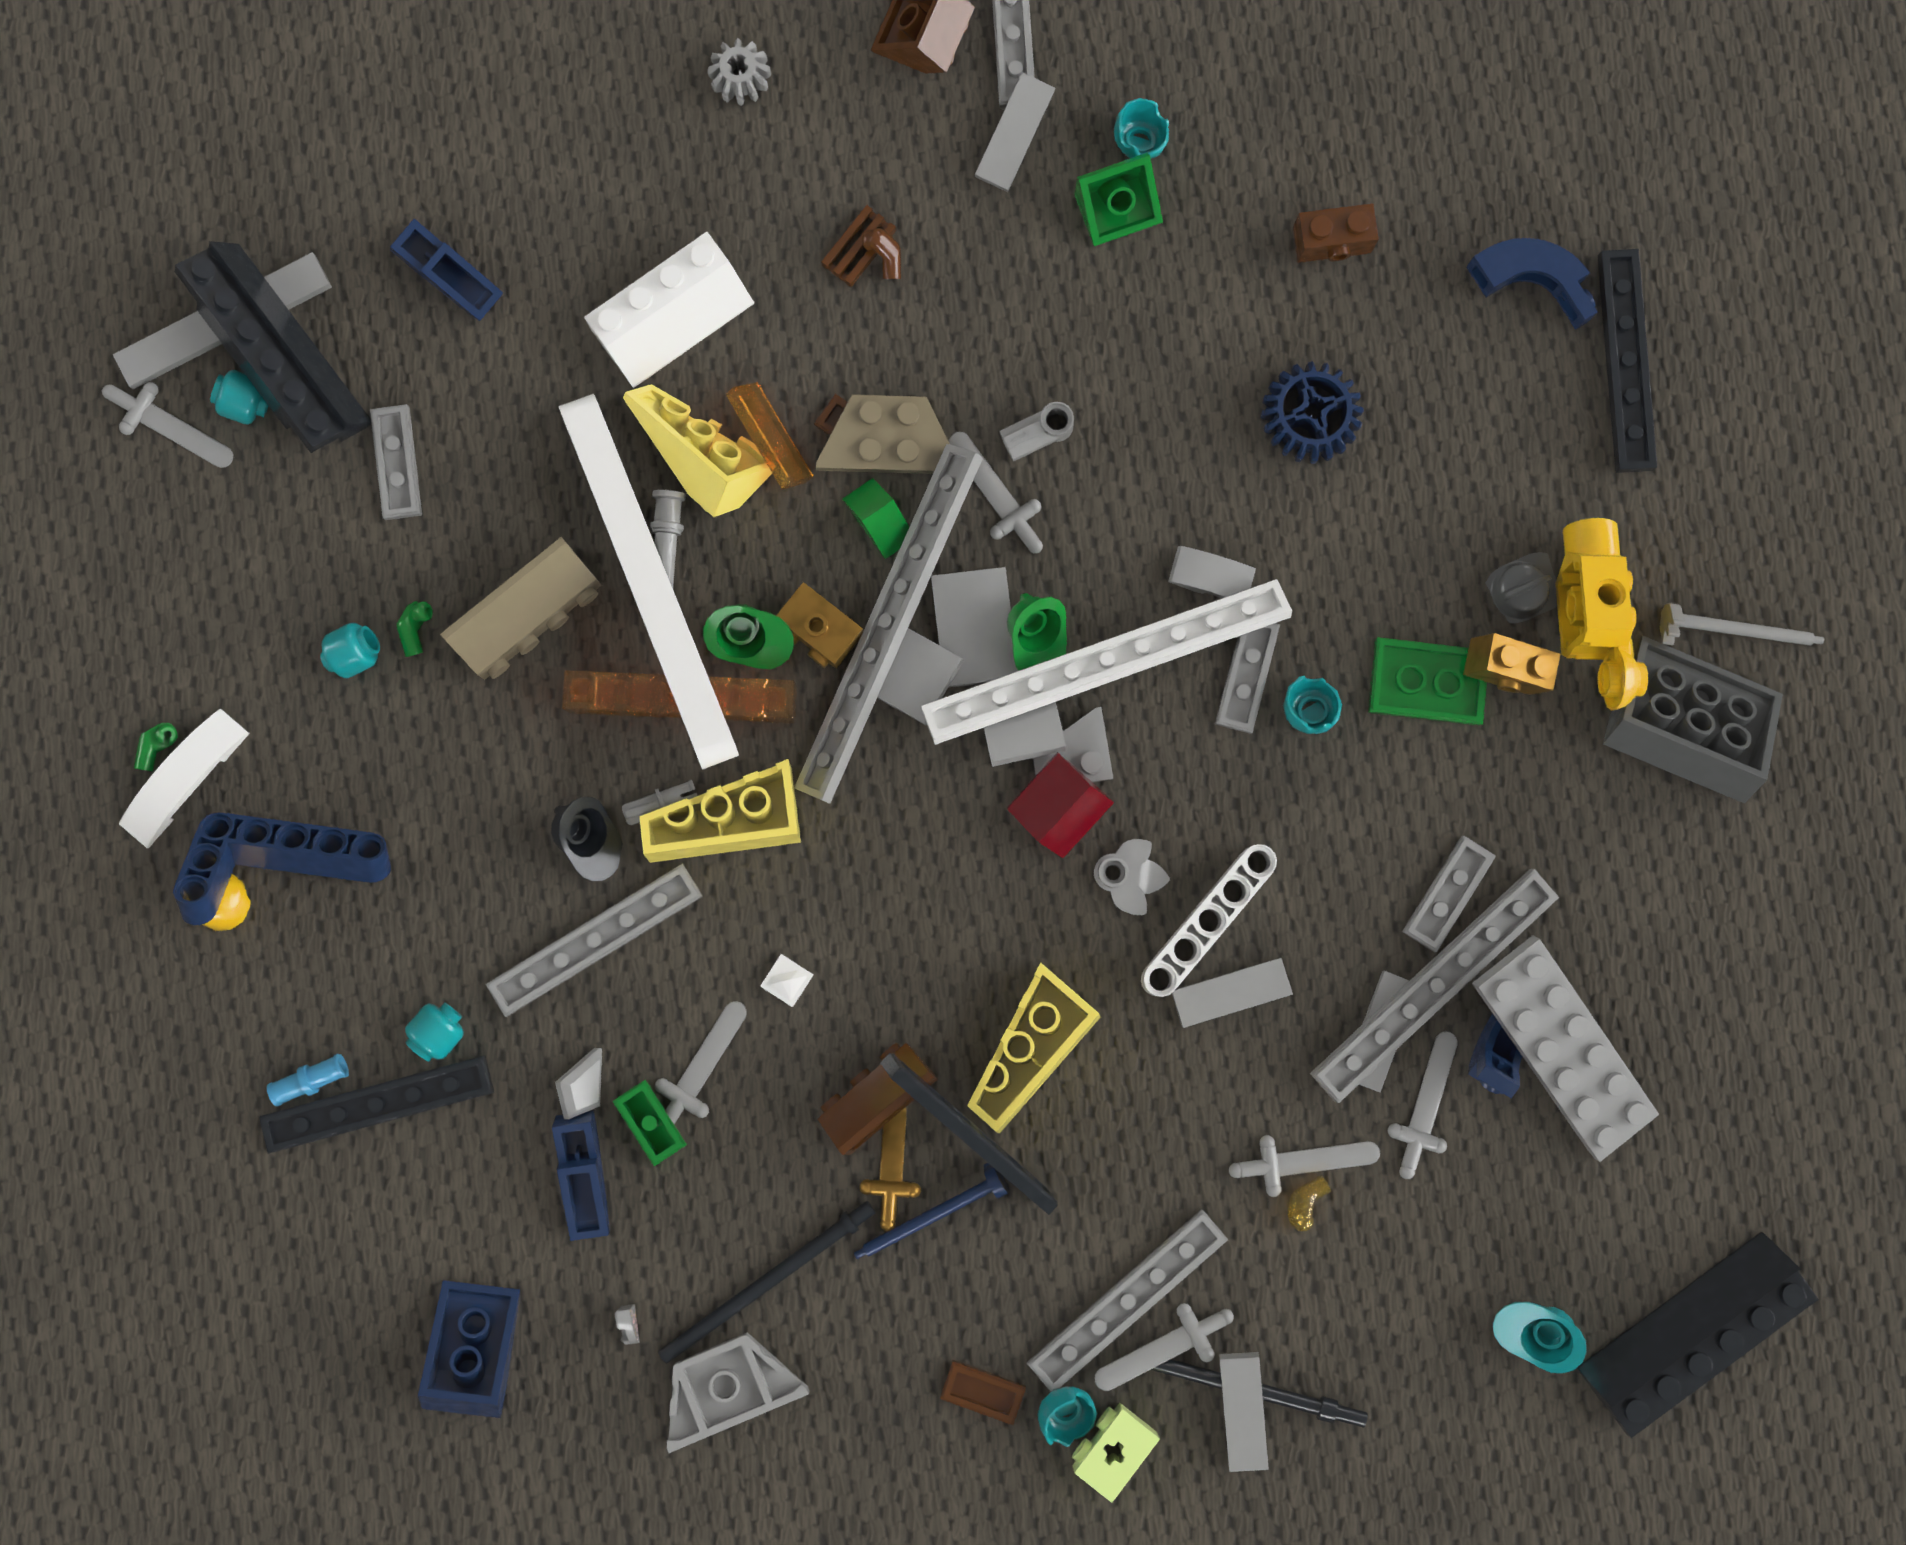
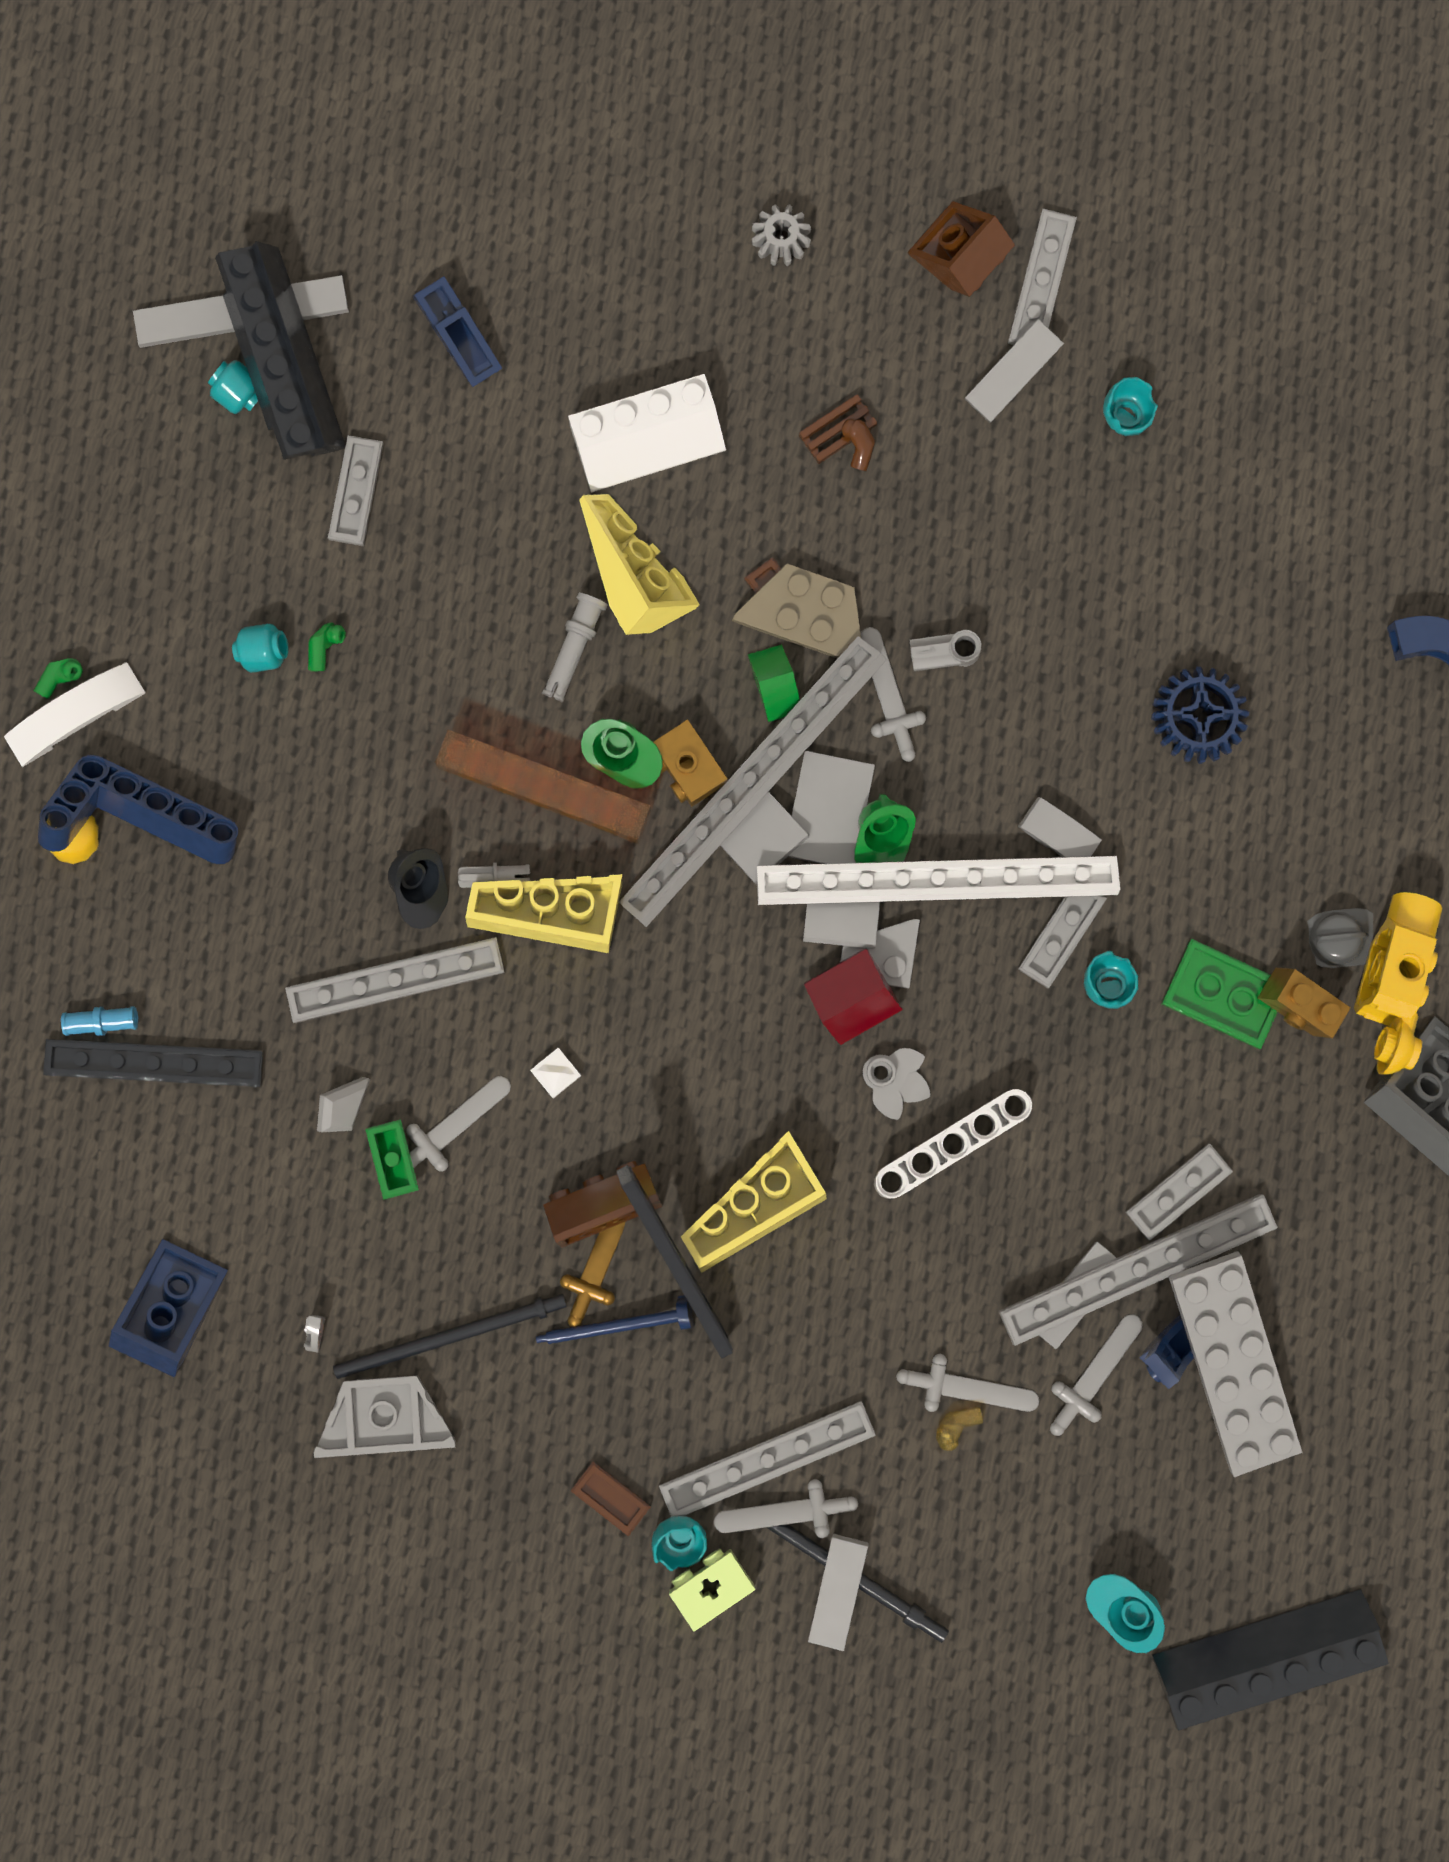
camera: 15 degrees right, 0 degrees up
(142, 410) = (143, 370): light grey sword -> none
(434, 1031) = (226, 1014): teal head -> none
(522, 610) = (427, 663): dark tan slope -> none
(581, 1176) = (315, 1187): dark blue slope -> none
(649, 582) = (549, 673): white beam -> none
(769, 435) = (700, 576): clear orange tile -> none
(1118, 199) = (1088, 464): green slope -> none
(1231, 992) = (952, 1216): light grey tile -> none
(1335, 233) = (1275, 558): reddish brown brick -> none

